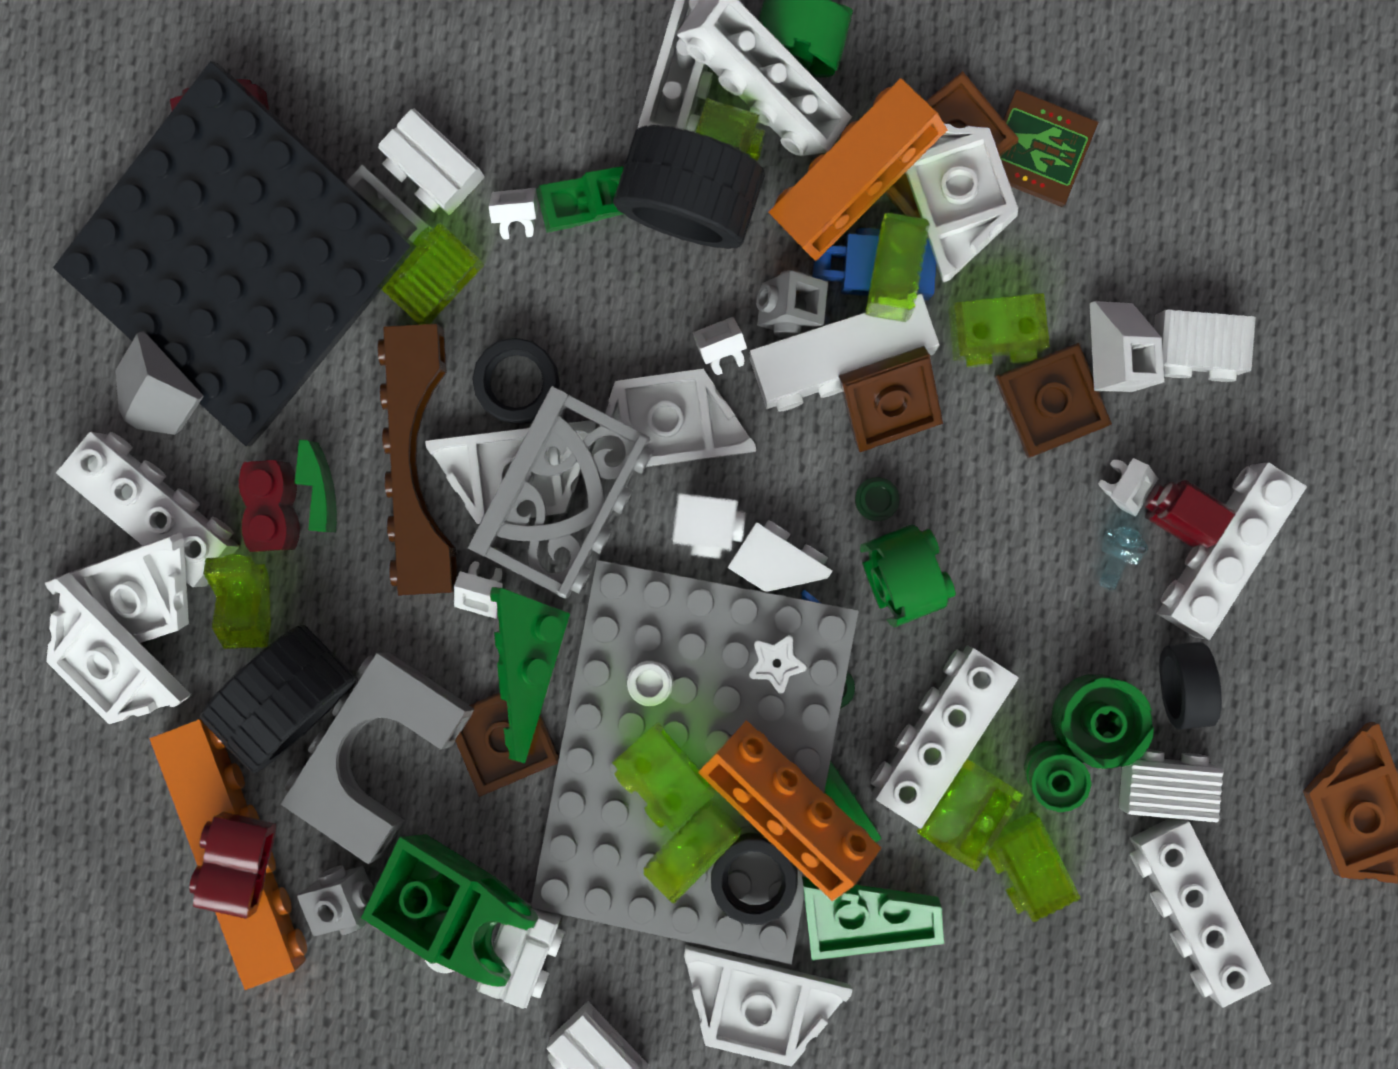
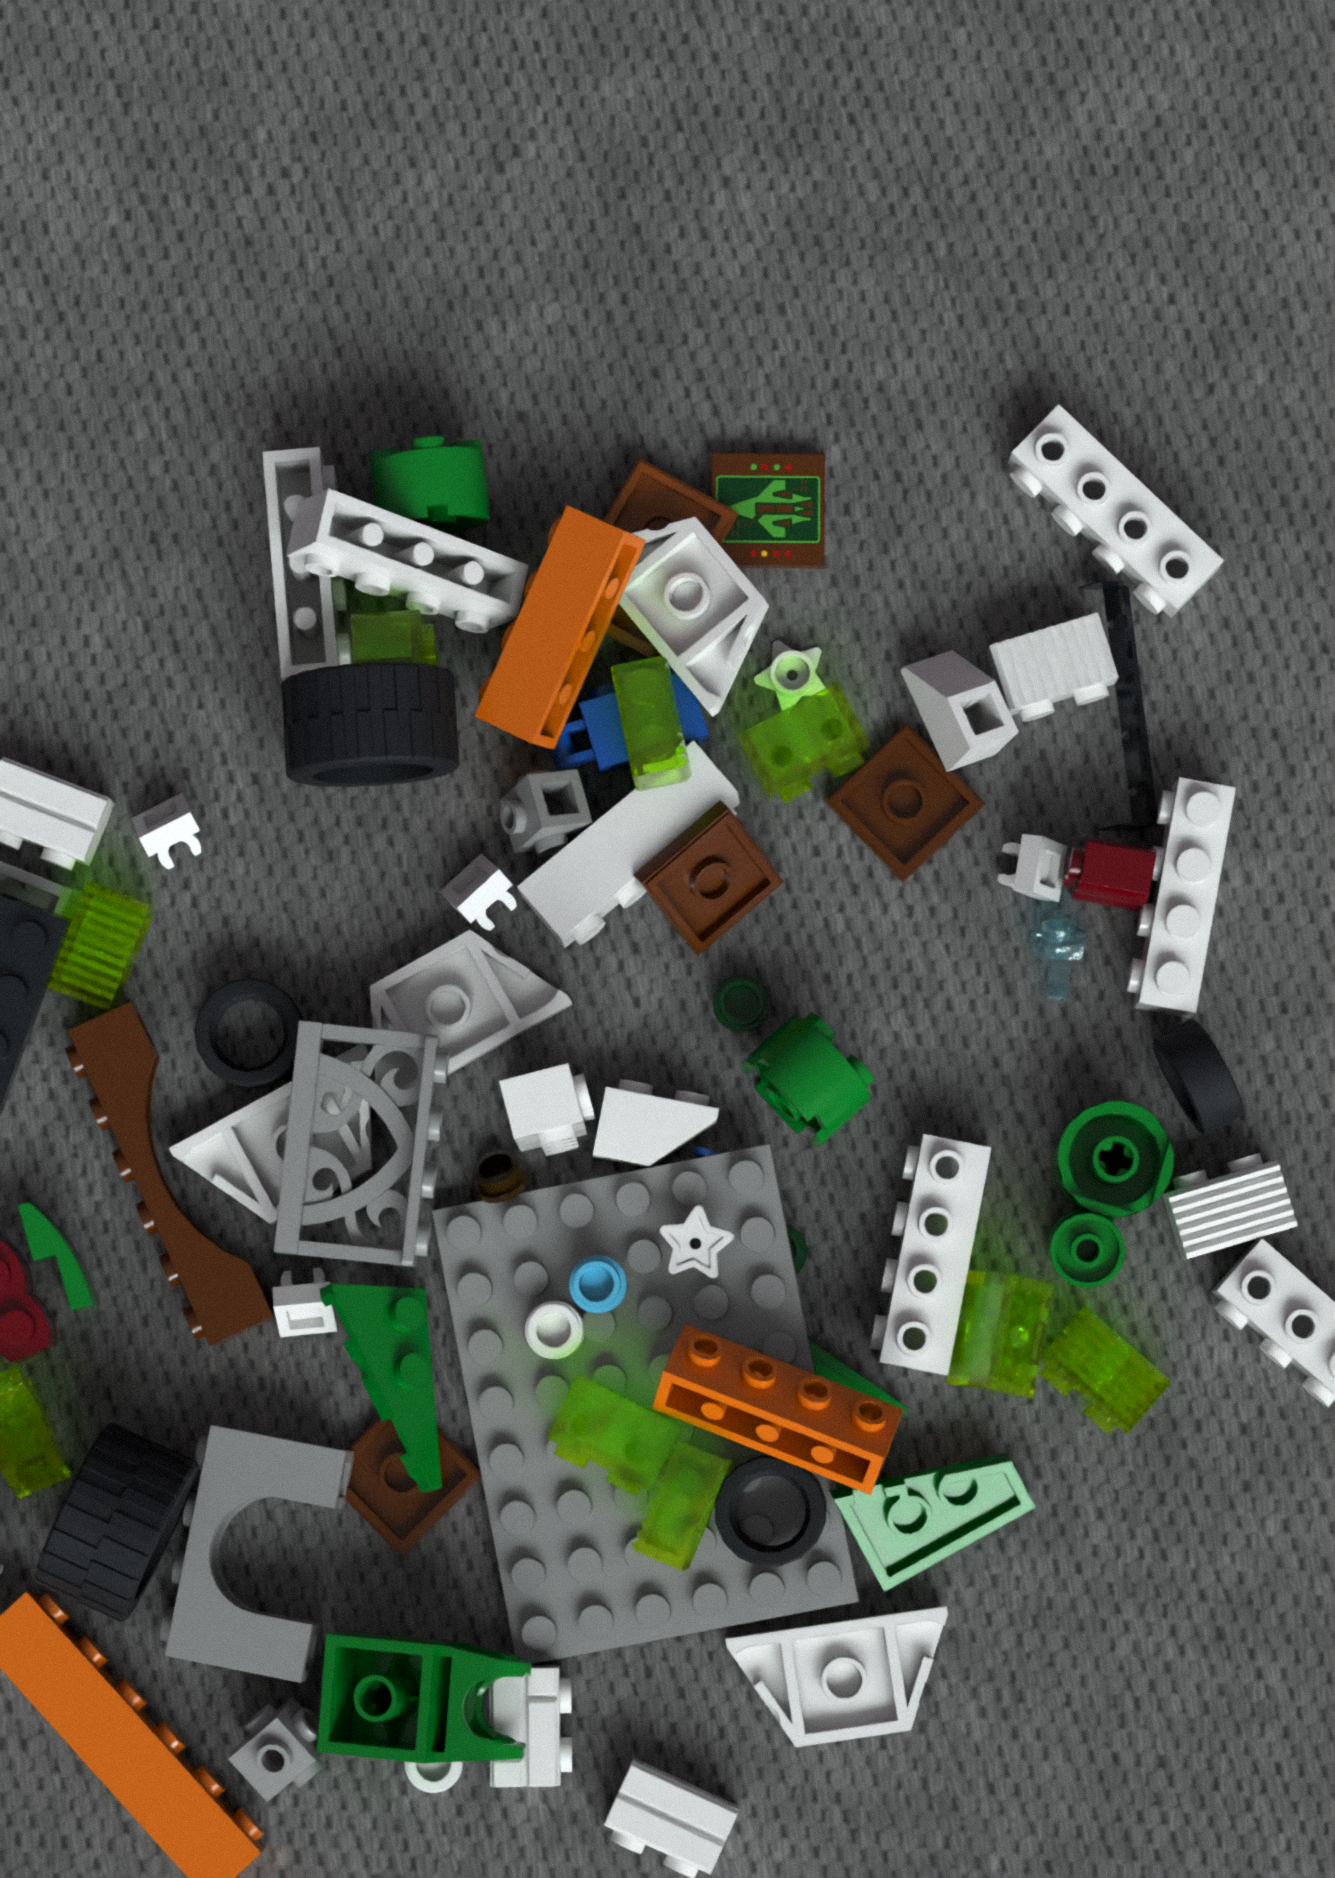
camera: 15 degrees left, 5 degrees down
(232, 864) = (138, 1745): dark red brick -> none
(579, 200) = (242, 785): green slope -> none
(654, 555) = (499, 1176): none -> dark brown plate
(694, 663) = (598, 1284): none -> medium azure plate
(1008, 263) = (784, 660): none -> plate
(1241, 394) = (1125, 705): none -> black piece
(1294, 248) = (1113, 511): none -> white brick

